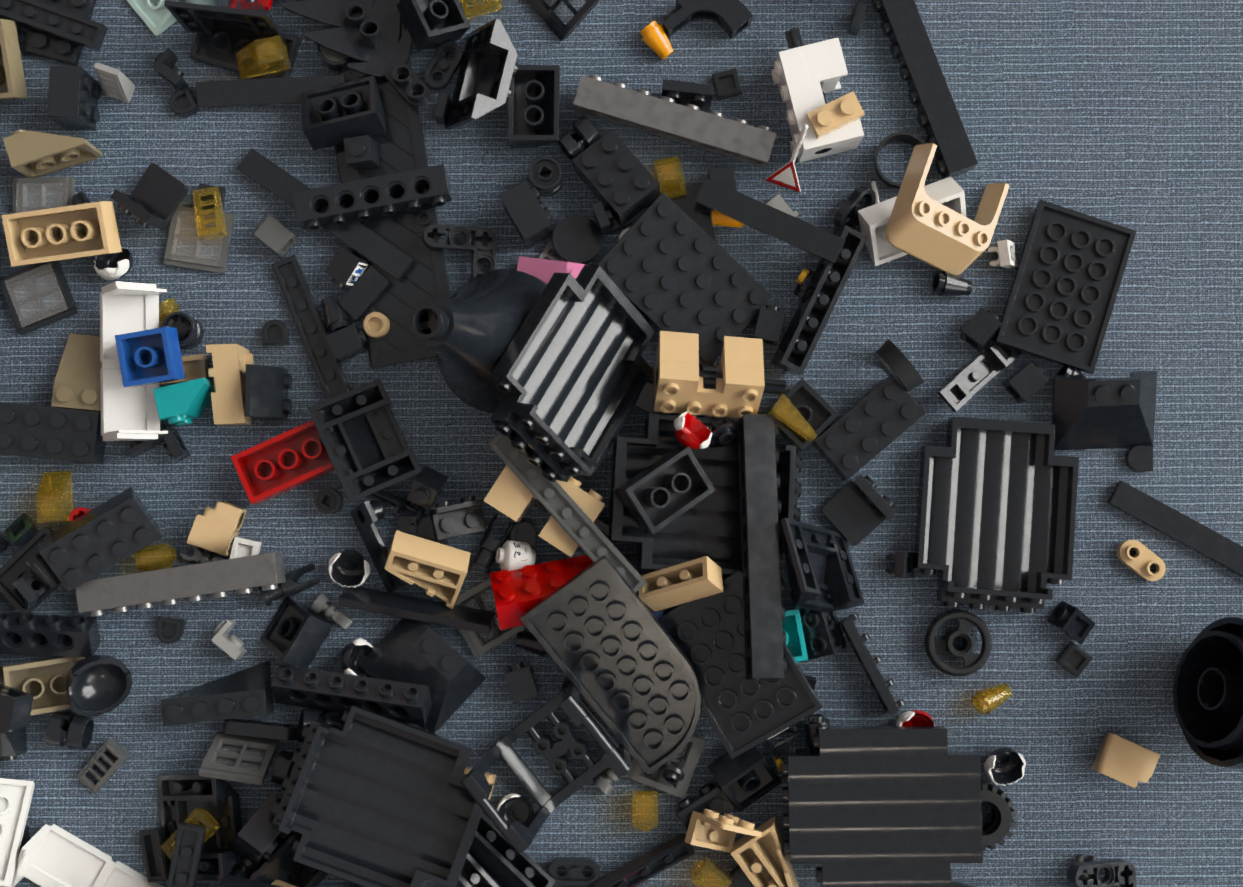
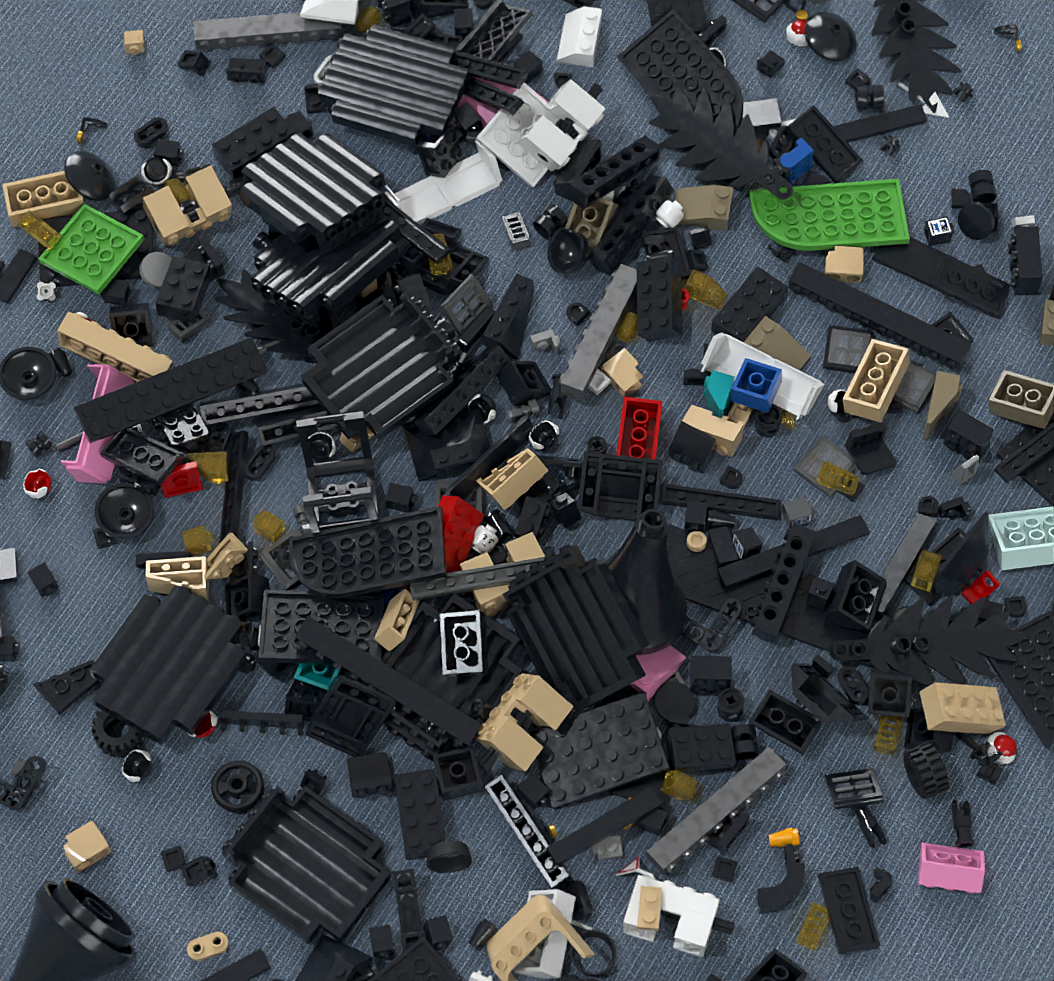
camera: 125 degrees right, 20 degrees down
(692, 431) = (491, 685): red hair -> none
(790, 416) = (462, 755): clear yellow slope -> none
(991, 698) = (186, 785): clear yellow cone -> none

